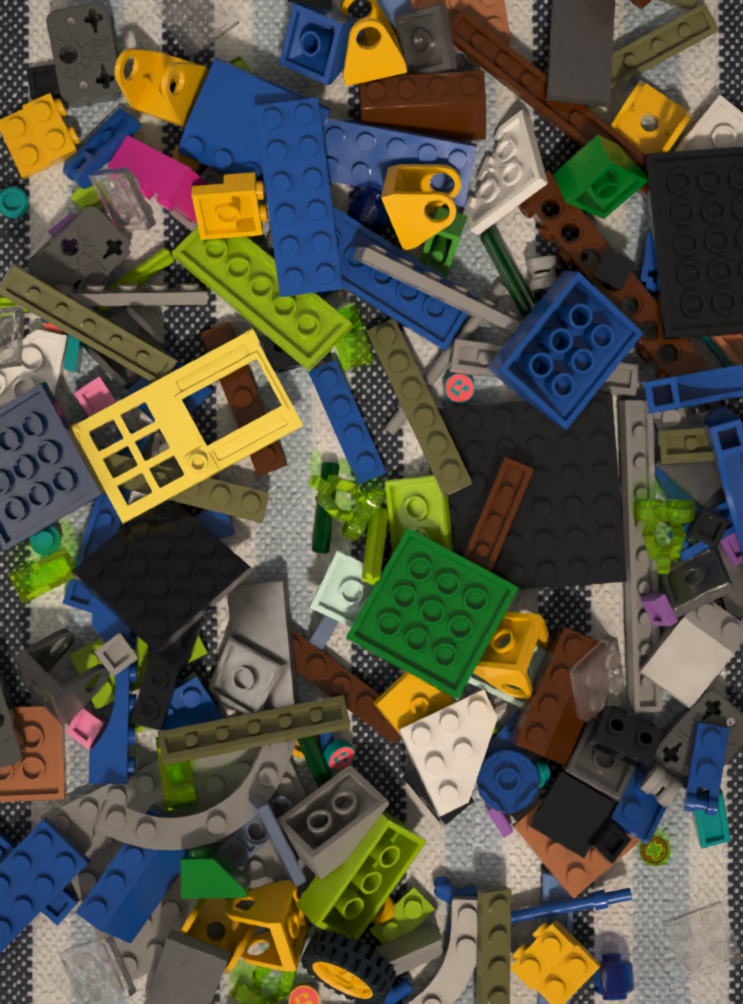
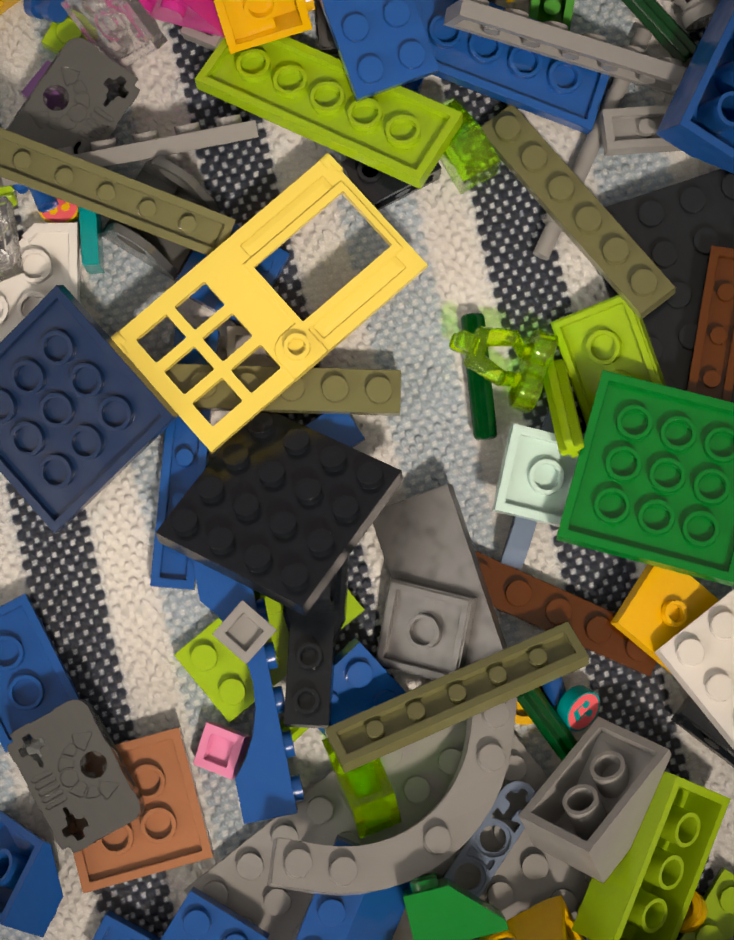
camera: 15 degrees left, 5 degrees down
(42, 574) = (114, 551): clear neon green slope -> none
(46, 541) = (109, 507): plate -> none
(59, 700) = (173, 715): dark grey hose -> none
(95, 396) = (131, 295): bright pink plate -> none
(143, 271) = (161, 117): lime axle -> none
(244, 401) = (337, 261): reddish brown plate -> none
(277, 839) = (526, 842): sand blue tile -> none
(347, 422) = (481, 256): blue plate -> none
(459, 388) = (620, 178): coral tile -> none

